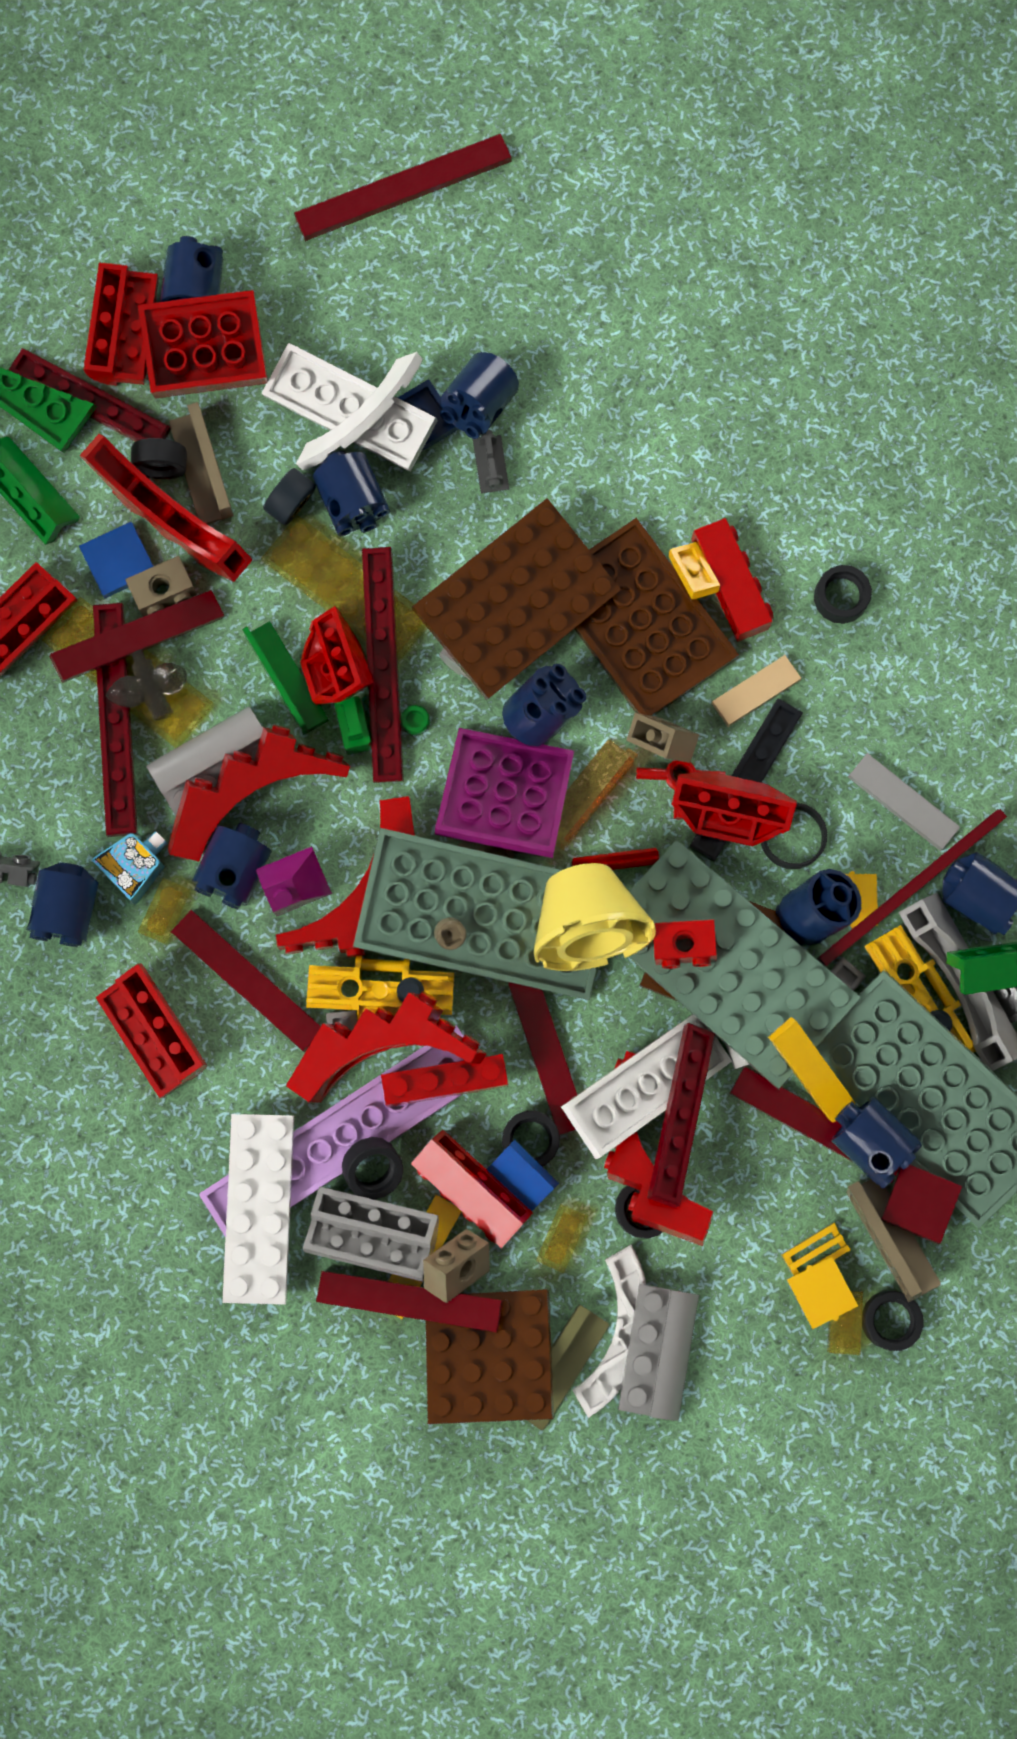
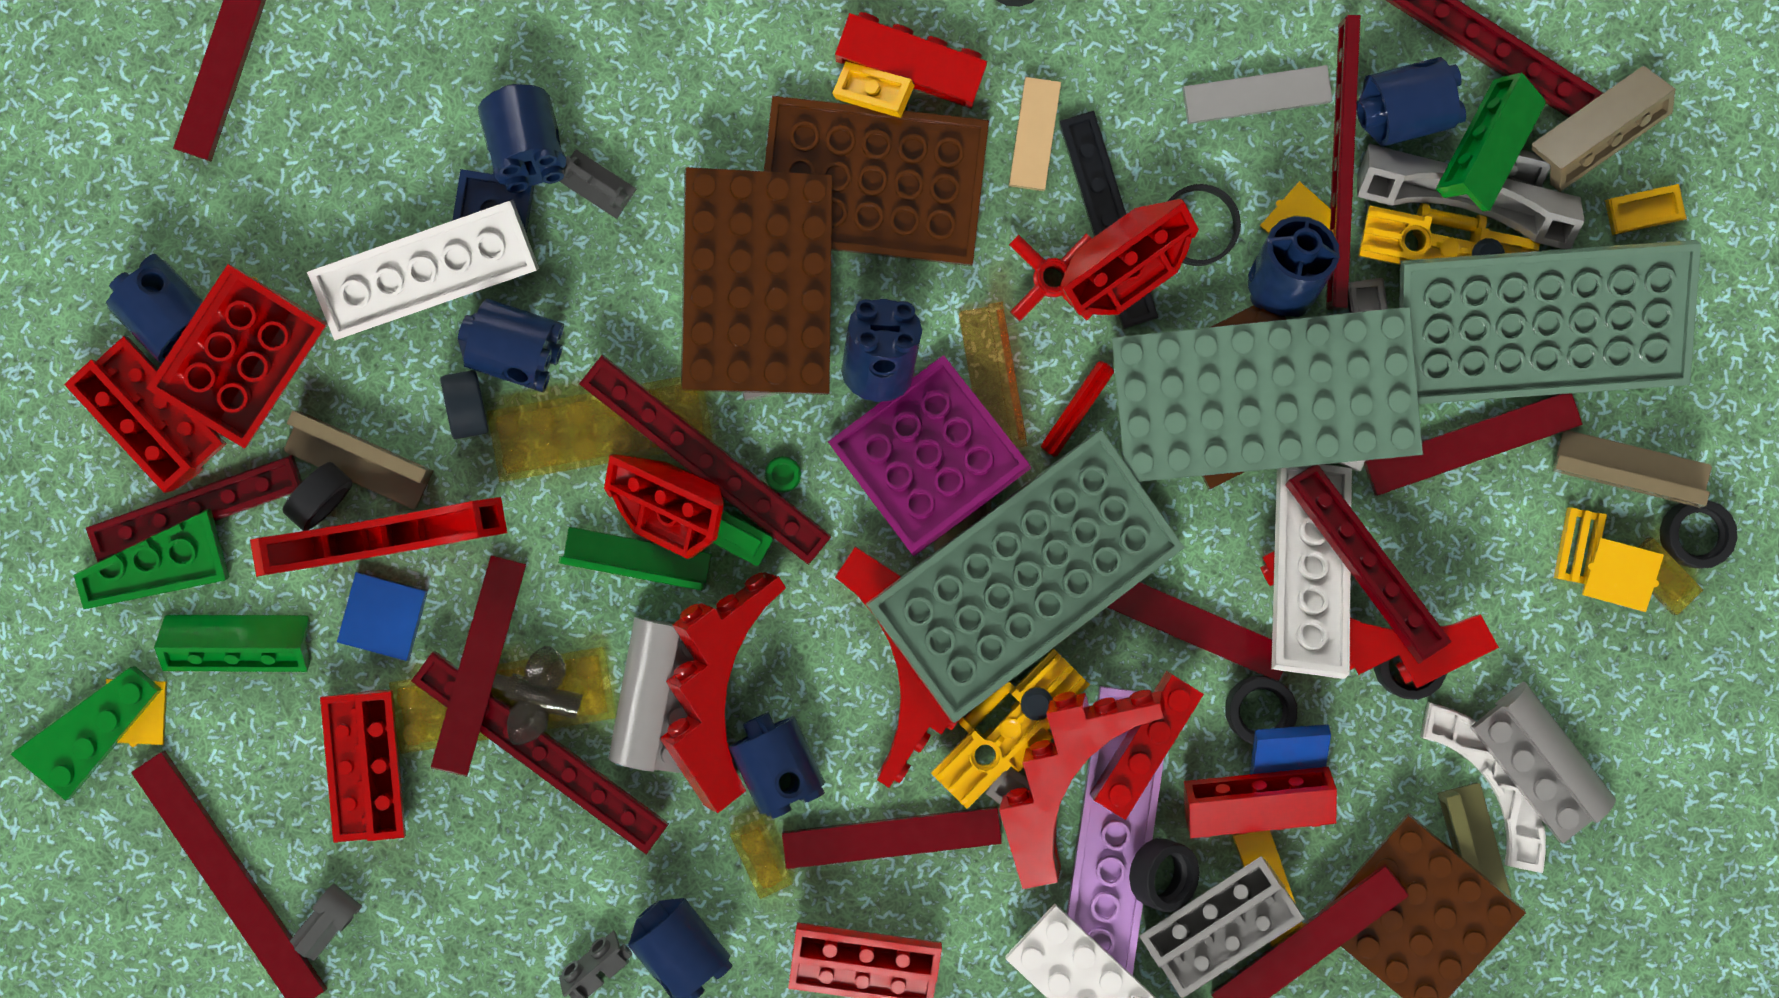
camera: 45 degrees left, 10 degrees up
(132, 864) = (693, 851): torso -> none
(170, 573) = (432, 616): dark tan brick -> none
(293, 881) = (841, 723): magenta slope -> none
(365, 416) = (451, 265): white tile -> none
(450, 933) = (1020, 625): dark tan tile -> none
(456, 1265) = (1317, 877): dark tan brick -> none
(561, 1238) = (1369, 758): clear yellow plate -> none
(589, 919) = (1121, 489): light yellow cone -> none
(662, 737) = (1008, 265): dark tan brick -> none
(670, 933) = (1224, 398): red brick -> none
(810, 1068) = (1432, 410): yellow tile -> none
(875, 1140) = (1541, 409): dark blue cylinder -> none
(921, 1203) = (1626, 416): dark red tile -> none

